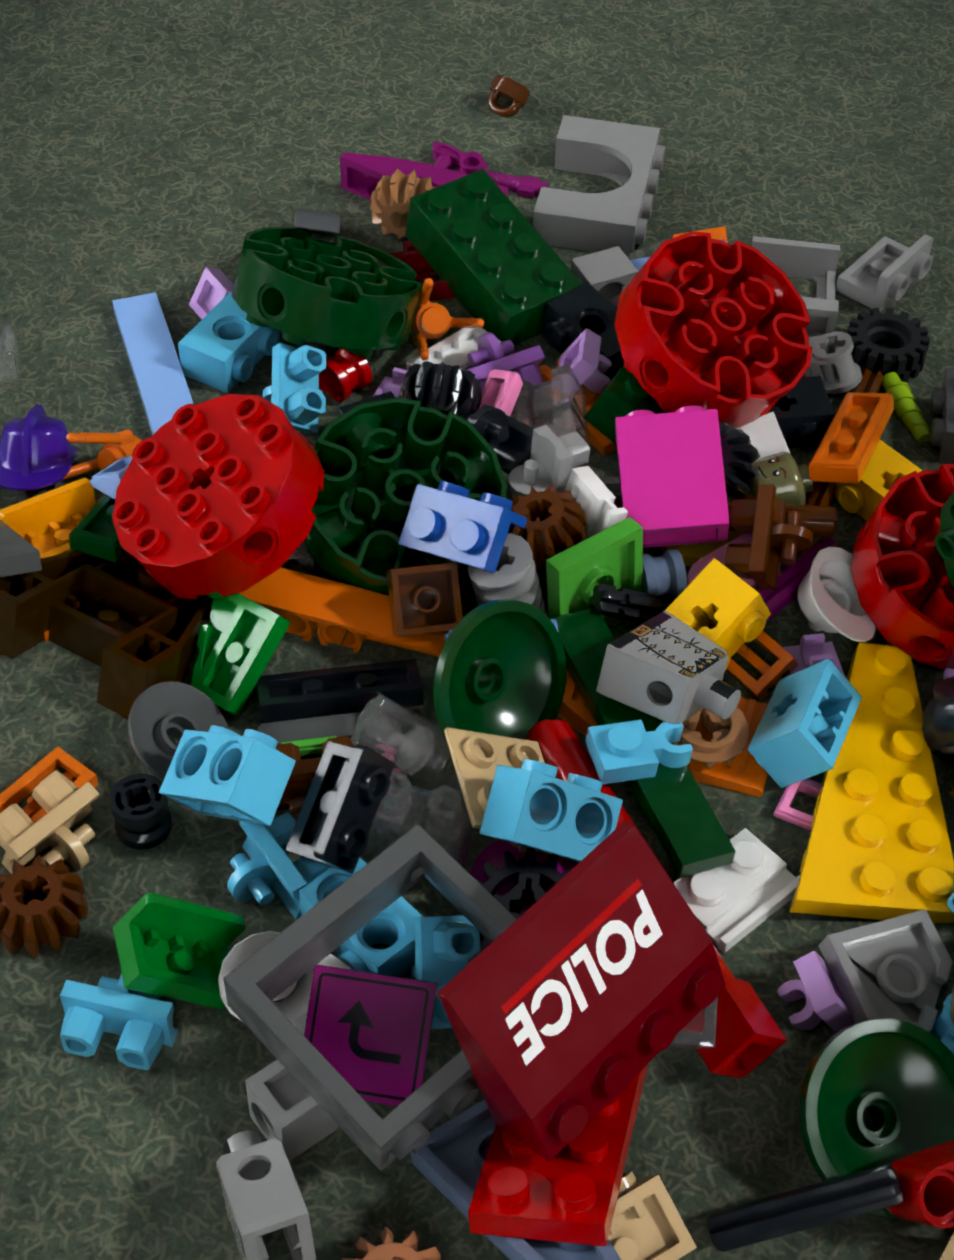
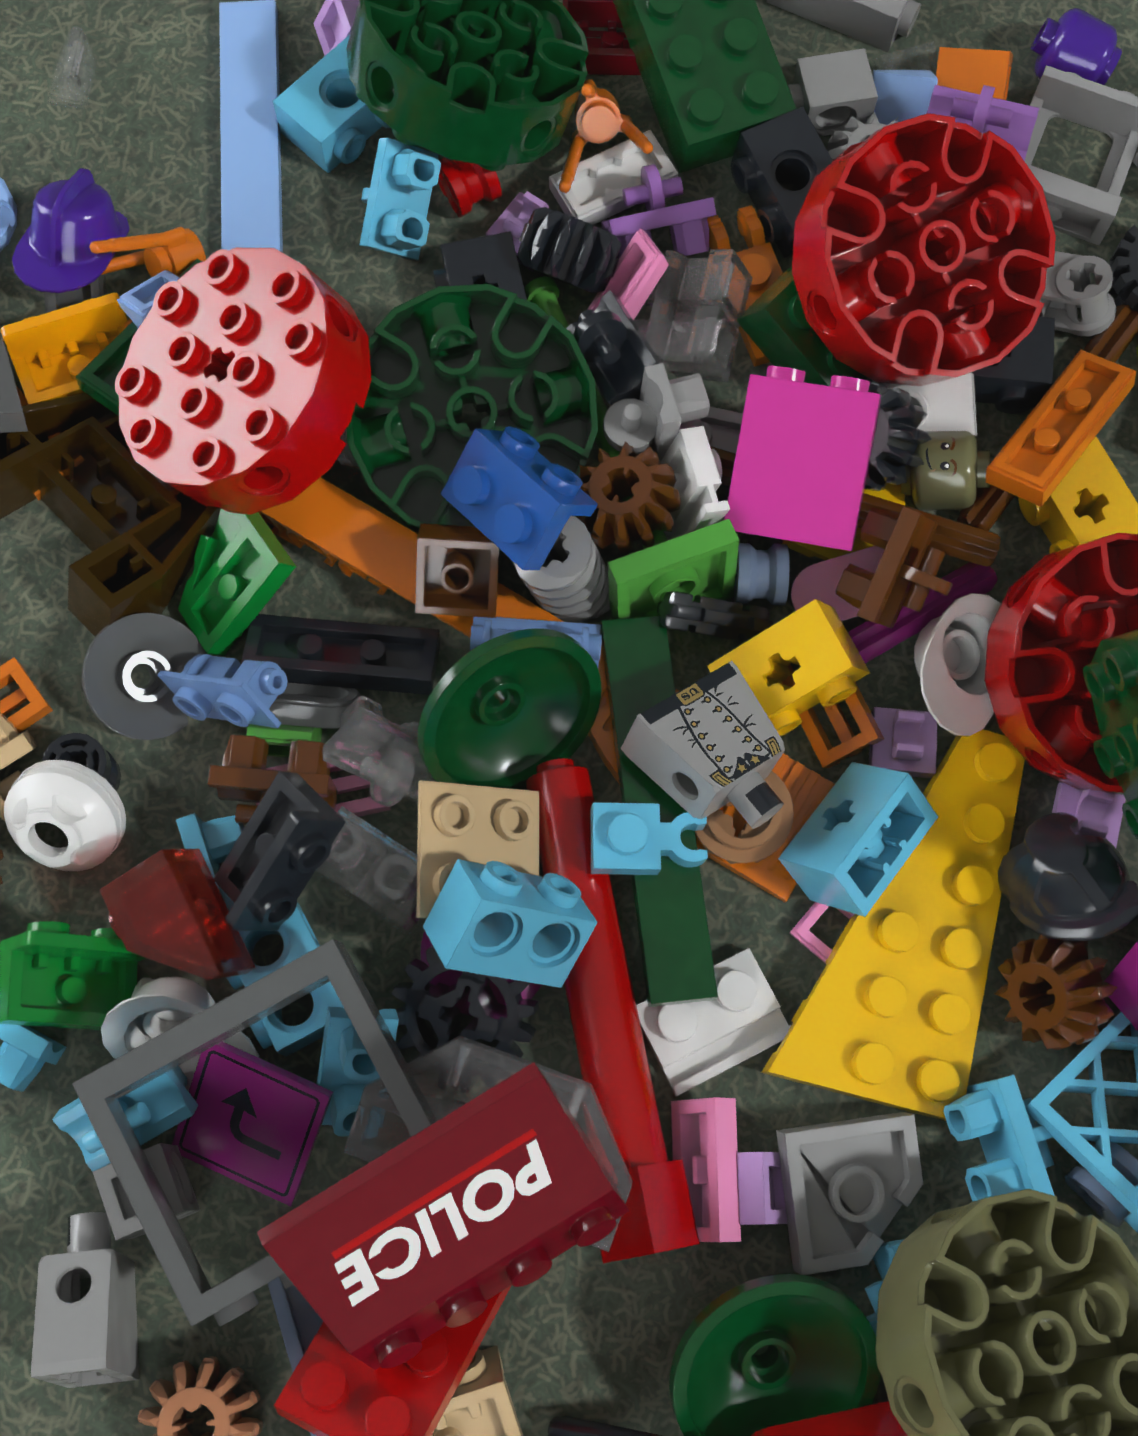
camera: 15 degrees right, 25 degrees up
(144, 812) = (75, 802): none -> white piece
(228, 774) = (166, 777): medium azure brick -> none
(240, 1054) = (148, 1109): none -> medium azure hips
(257, 874) = (176, 916): none -> clear red slope
(271, 713) = (227, 689): none -> medium blue hinge
(587, 362) = (758, 233): lavender tile -> none
(769, 222) = (1077, 45): none -> dark purple head
(776, 981) = (707, 1143): none -> bright pink tile

